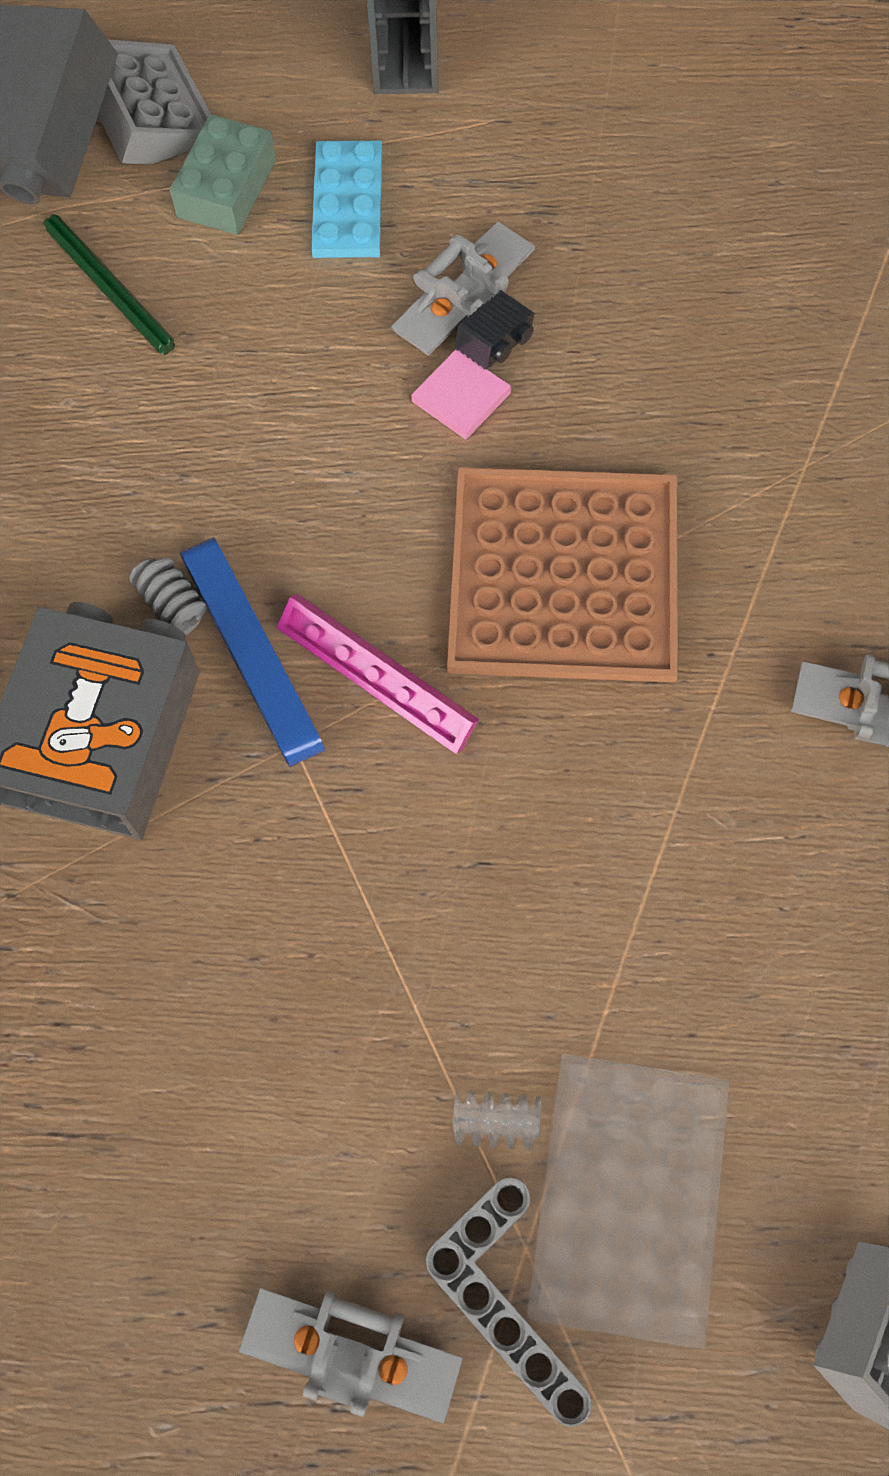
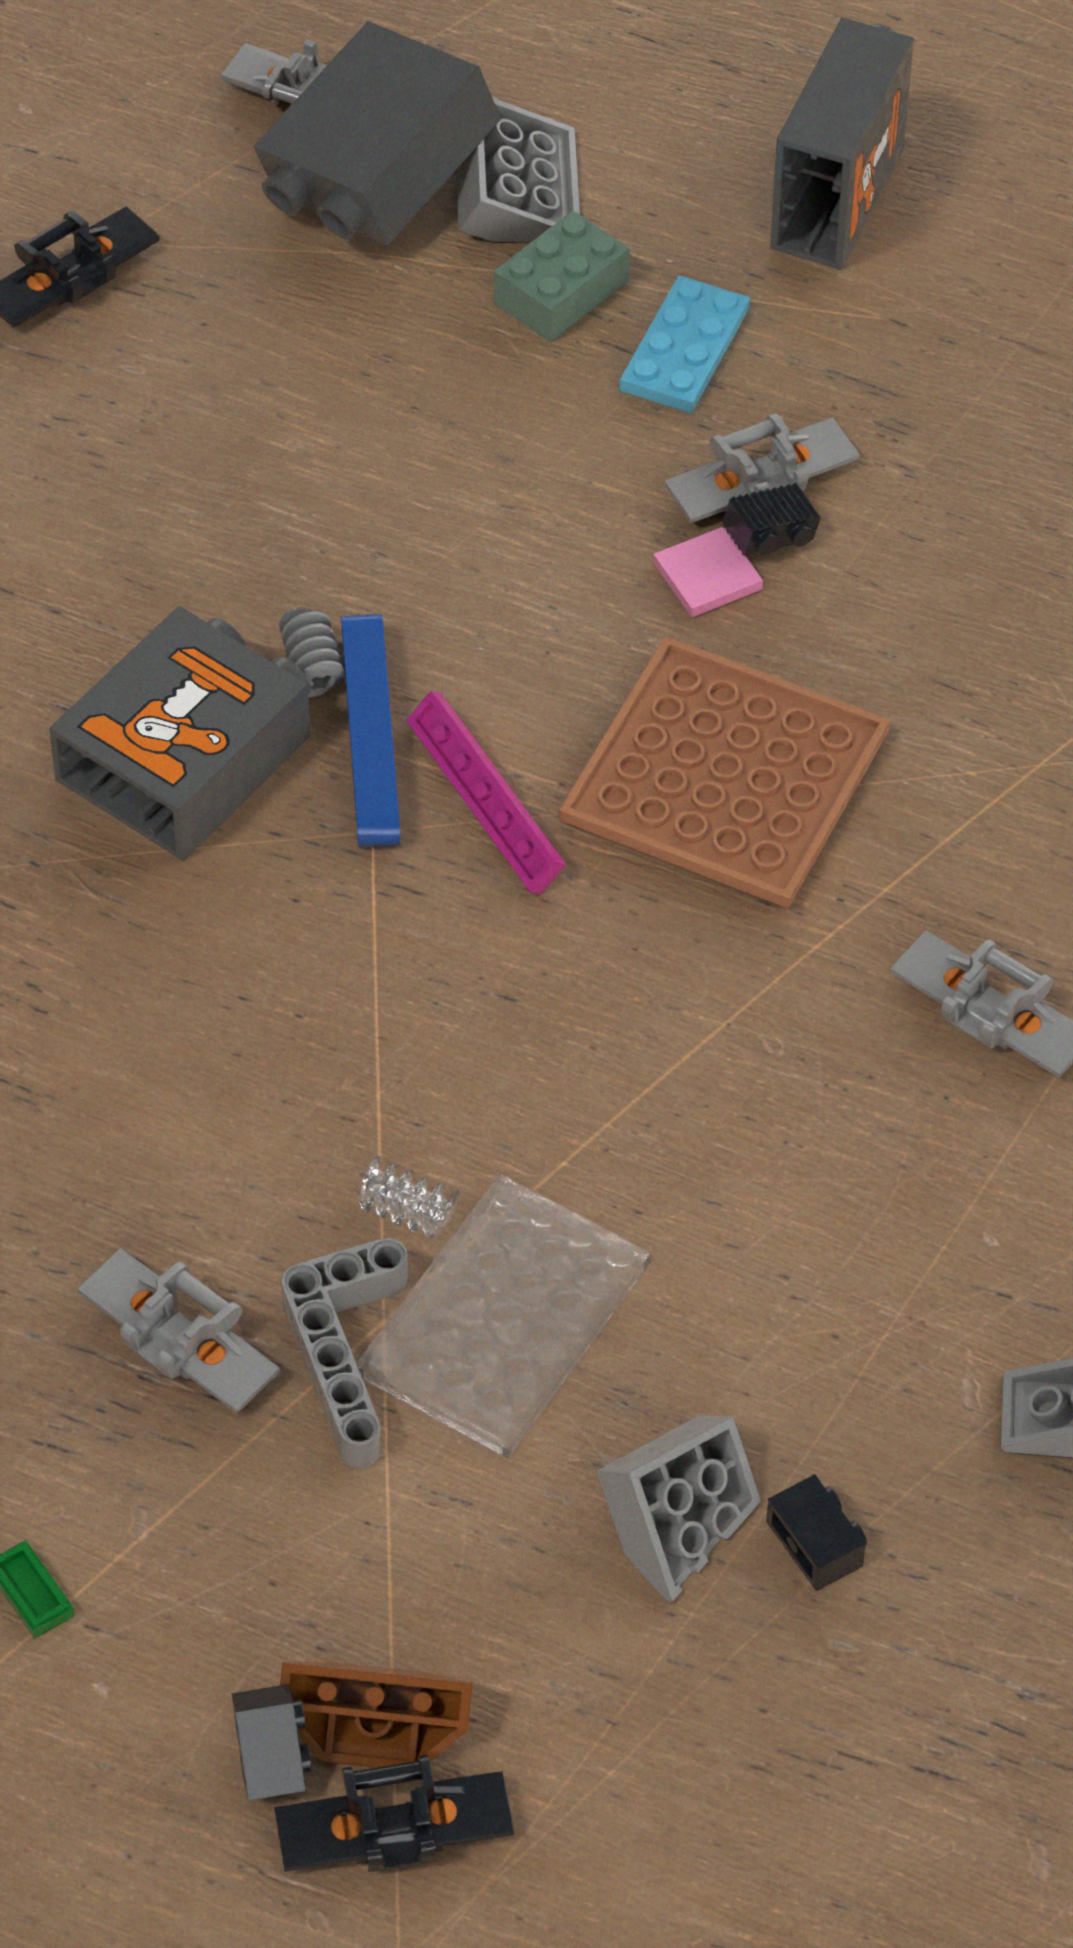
camera: 20 degrees right, 15 degrees down
(109, 284) = (390, 345): dark green axle -> none

